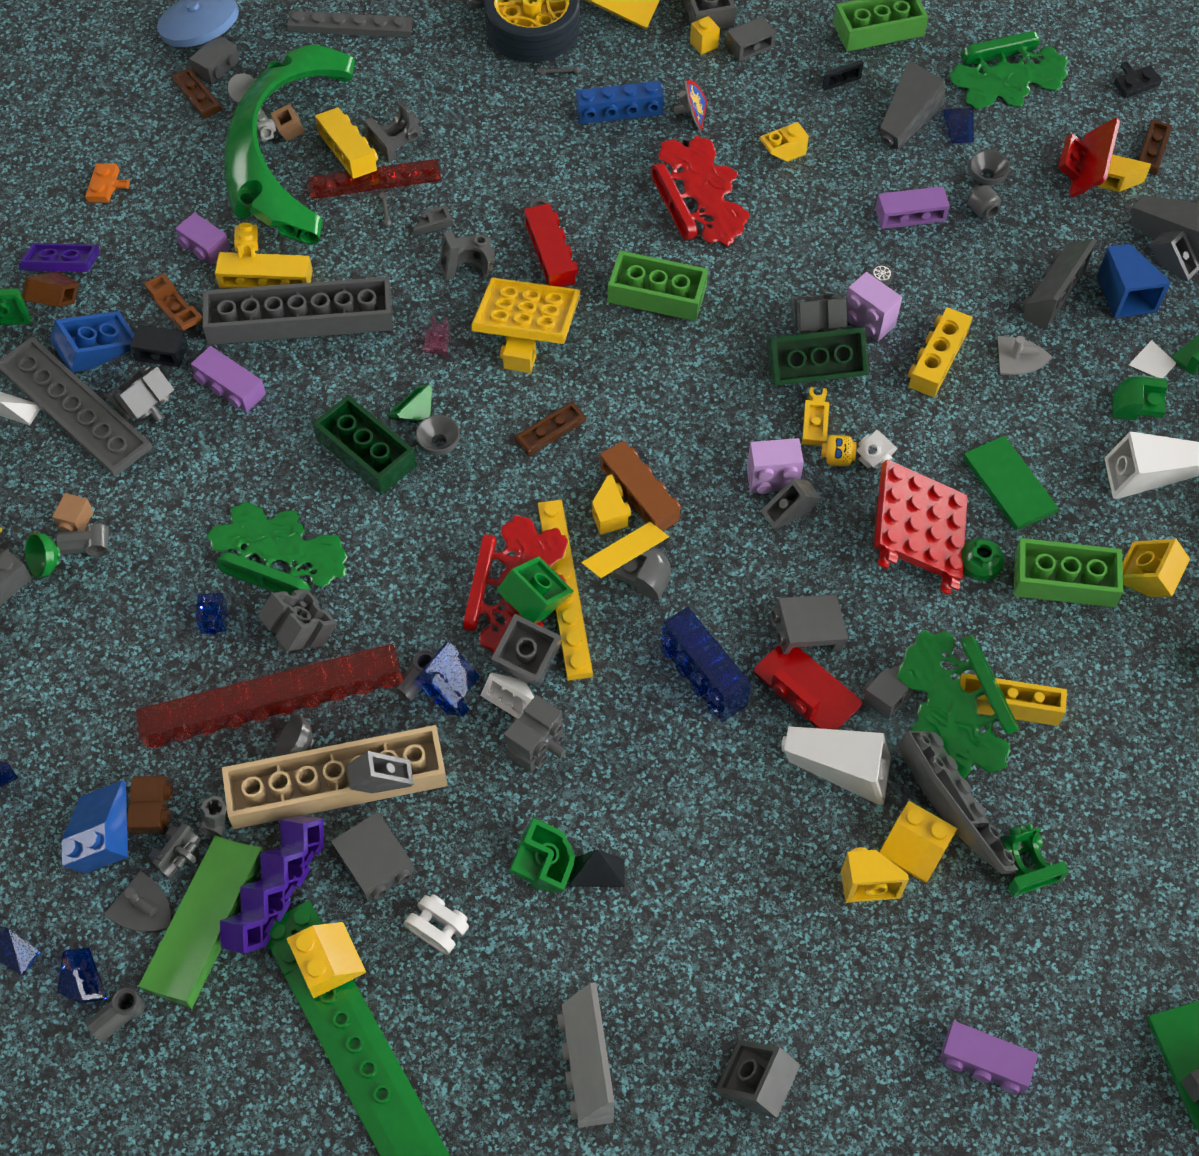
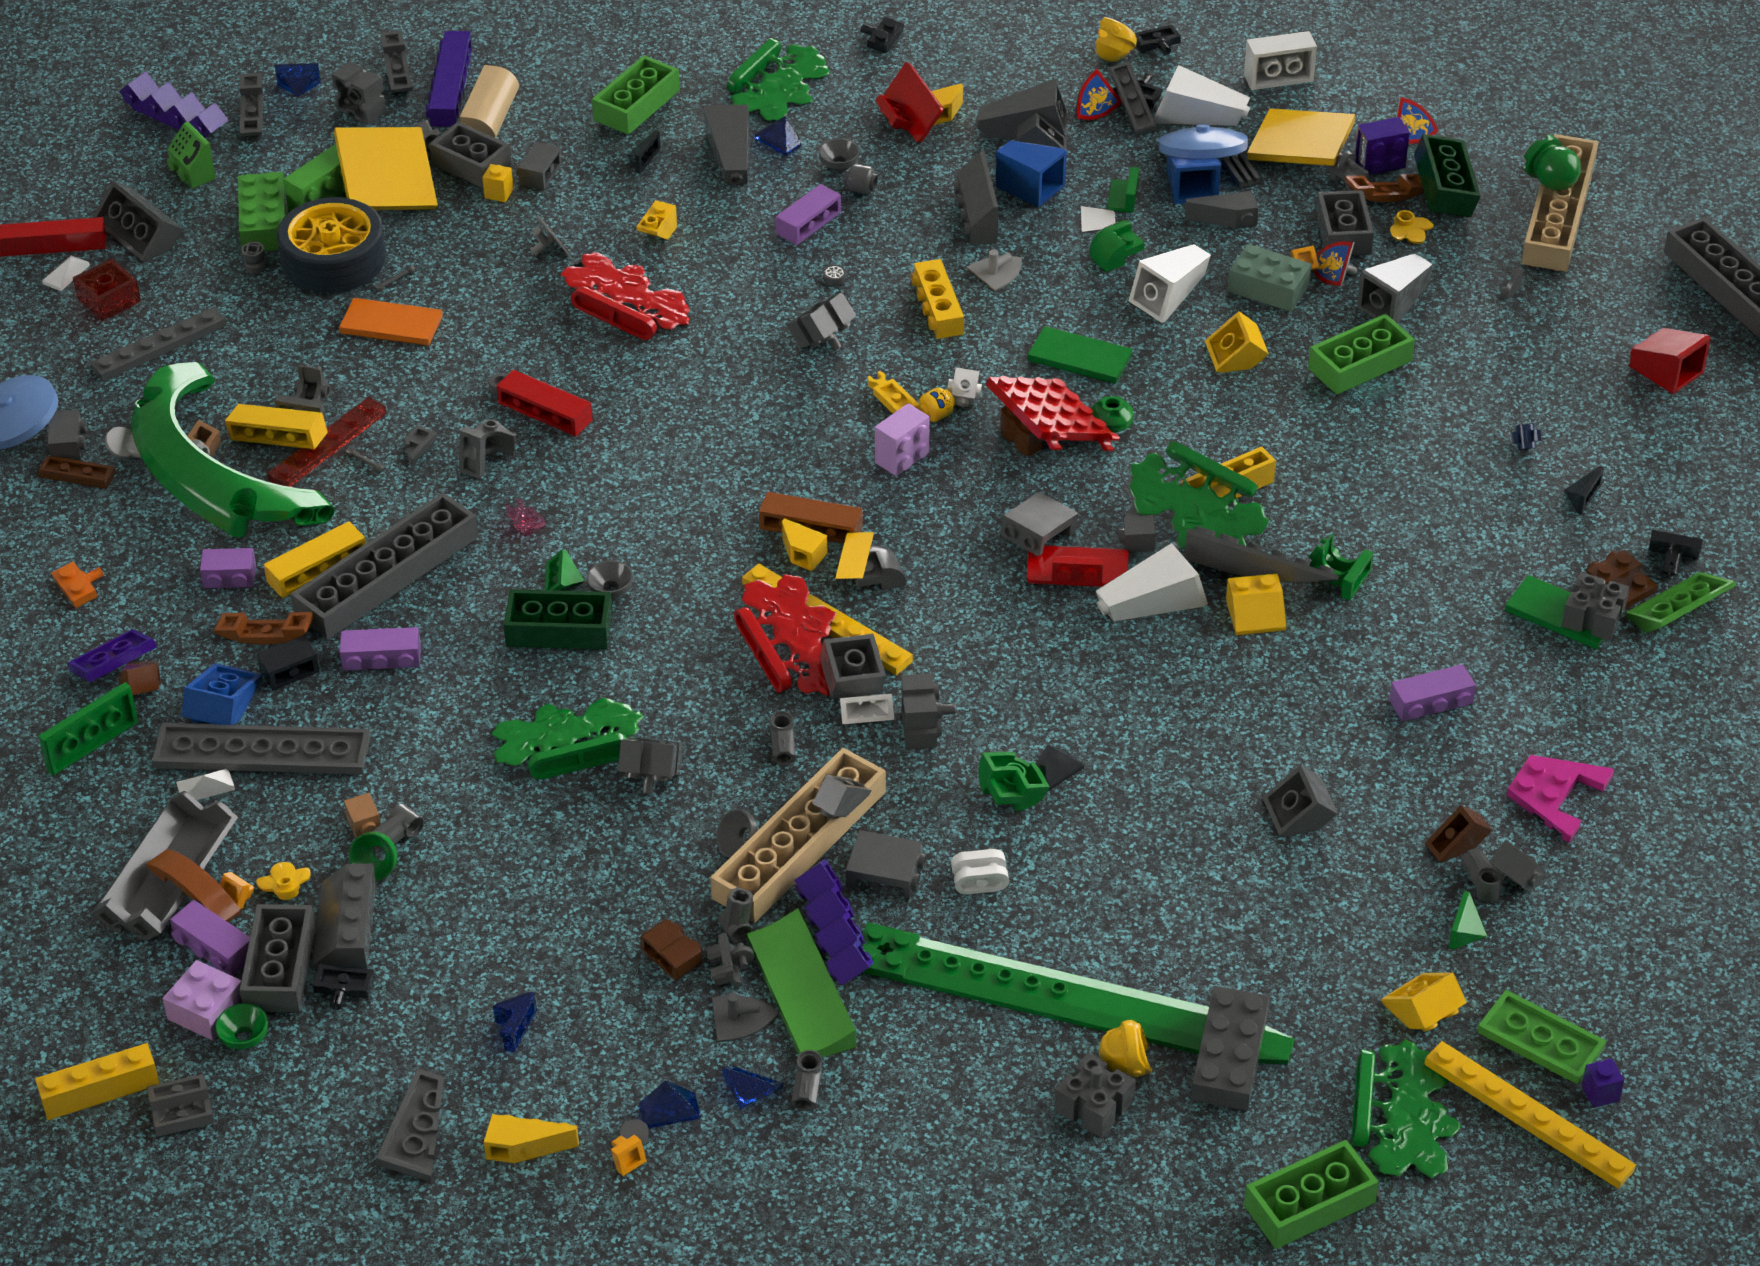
camera: 40 degrees left, 15 degrees down
(97, 830) = (653, 984): blue slope -> none
(139, 394) = (323, 696): brick -> none
(211, 613) = (567, 803): clear blue brick -> none
(246, 239) = (273, 543): yellow plate -> none
(269, 696) = (685, 819): clear red brick -> none
(326, 957) = (925, 939): yellow slope -> none
(448, 680) = (816, 724): clear blue bracket -> none
(518, 105) = (391, 321): none -> orange tile
(518, 354) = (604, 485): yellow slope -> none
(526, 310) = (582, 453): yellow tile -> none
(534, 590) = (814, 623): green slope -> none
(550, 428) = (691, 526): reddish brown tile -> none
(587, 1059) = (1182, 857): light grey slope -> none
(619, 102) = (482, 269): blue brick -> none
(657, 285) = (670, 377): bright green brick -> none
(704, 665) = (994, 591): clear blue brick -> none
(791, 503) = (937, 460): dark grey slope -> none
(817, 356) = (853, 350): dark green brick -> none
(871, 877) = (1250, 639): yellow slope -> none
(872, 306) = (862, 290): lavender brick -> none
(1068, 572) = (1183, 381): bright green brick -> none
(1155, 145) = (944, 70): reddish brown tile -> none

